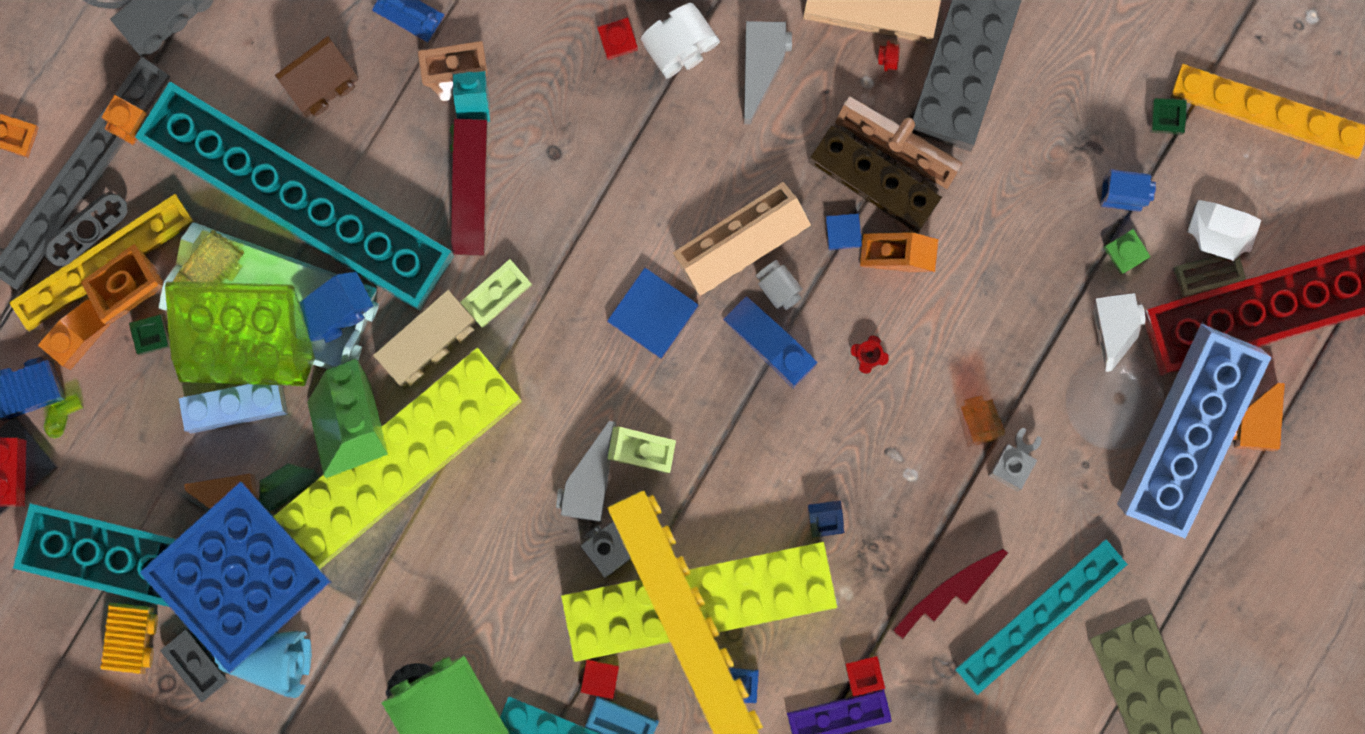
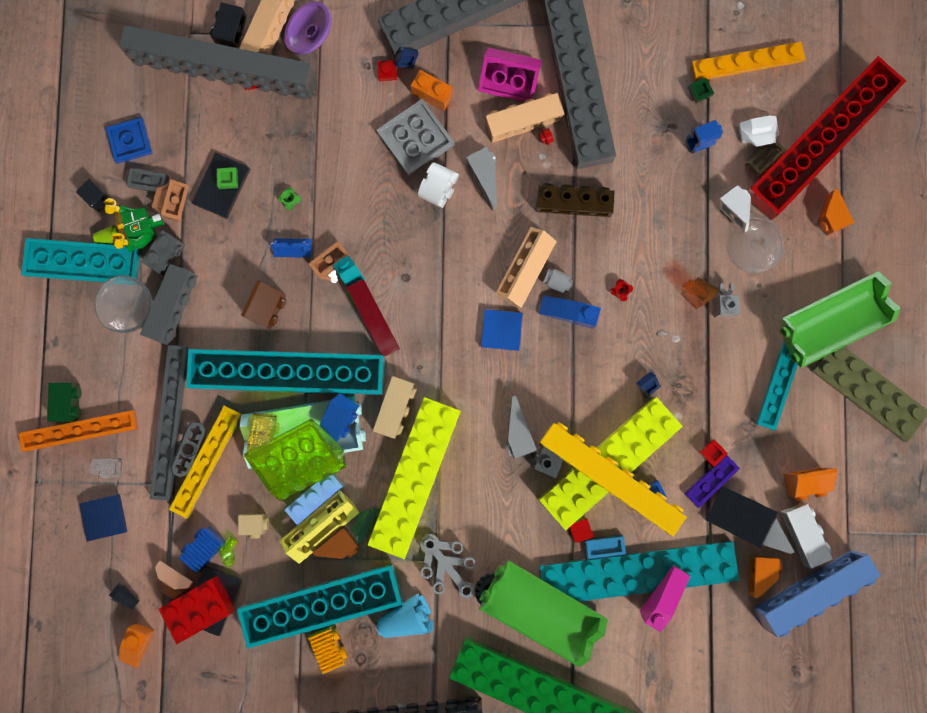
camera: 30 degrees left, 0 degrees up
(73, 335) = (212, 506): orange slope -> none
(119, 395) = (252, 525): none -> tan brick
(122, 284) = (222, 467): orange slope -> none
(123, 119) = (175, 382): orange brick -> none
(149, 334) = (251, 485): dark green plate -> none
(194, 665) = (370, 643): dark grey plate -> none
(215, 452) = (319, 527): none -> light yellow brick
(235, 577) = (366, 588): blue plate -> none
(345, 419) = (377, 472): bright green slope -> none
(370, 613) = (445, 563): none -> light grey plant
(496, 293) = (417, 364): yellowish green plate -> none
(617, 38) = (405, 202): red plate -> none
(641, 449) = (536, 402): yellowish green plate -> none
(843, 231) = (573, 236): blue tile -> none
(899, 142) = (576, 175): nougat plate -> none
(899, 252) = (607, 230): orange slope -> none
(959, 586) = (734, 380): dark red slope -> none
(1127, 252) = (718, 168): bright green plate -> none
(1169, 582) = (839, 319): none -> bright green cylinder
(1193, 431) = (810, 236): light blue brick -> none

